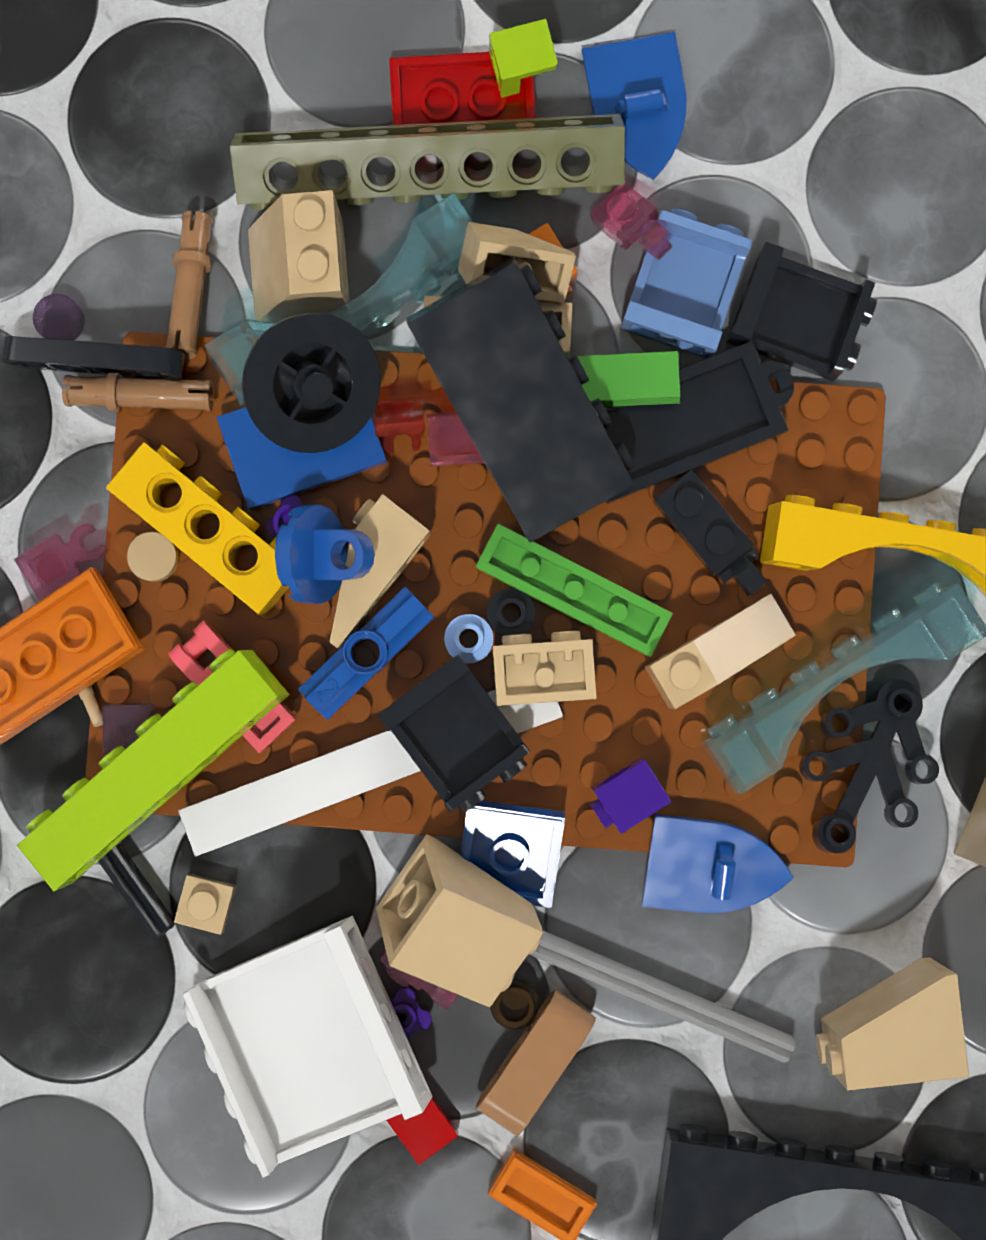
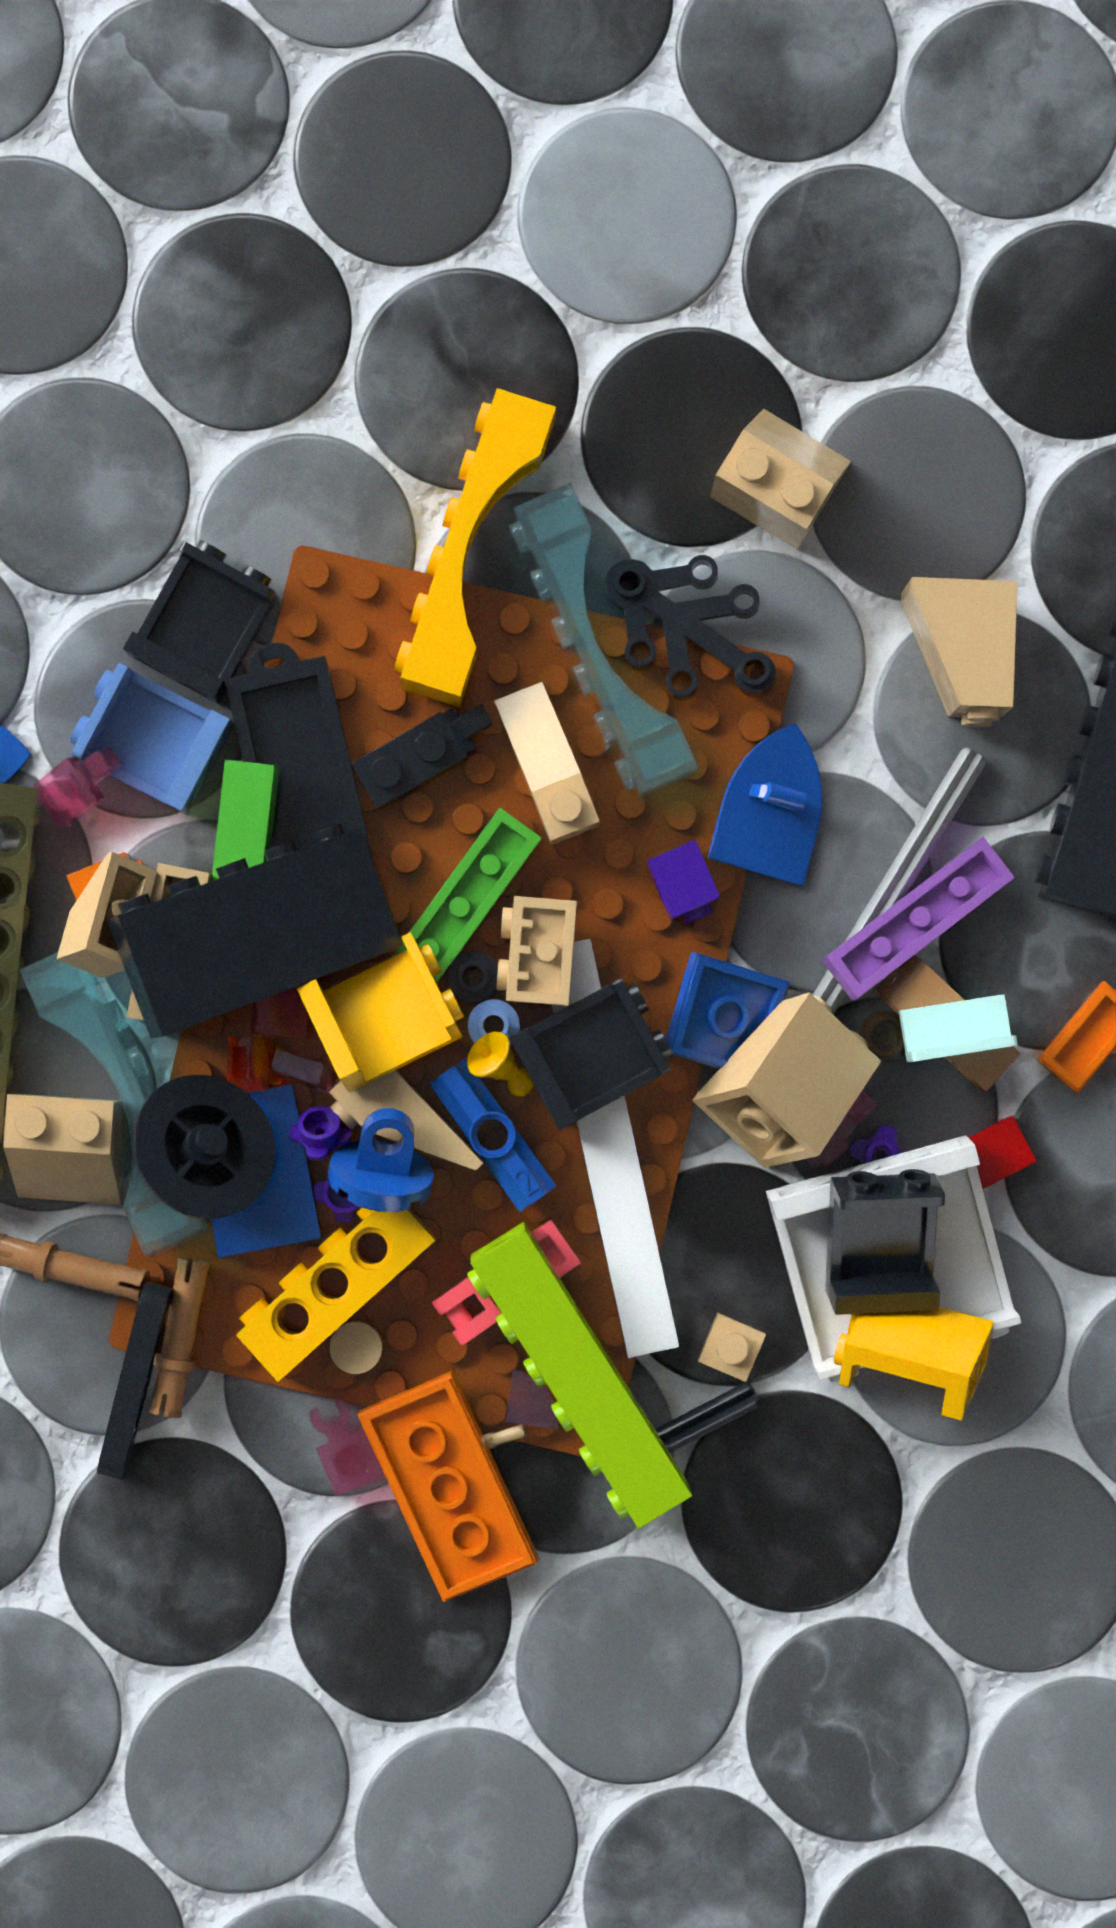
camera: 80 degrees left, 0 degrees up
(58, 318) = (83, 1415): clear purple tile -> none
(223, 1085) = (923, 1346): none -> yellow panel
(316, 1037) = (883, 1242): none -> black panel
(354, 488) = (315, 1122): none -> dark purple plate
(400, 468) = (314, 1073): none -> tile
(436, 643) = (495, 1059): none -> yellow piece
(460, 533) = (383, 1016): none -> yellow panel
(529, 1076) = (956, 1028): none -> light aqua panel
(628, 1021) = (917, 919): none -> medium lavender plate

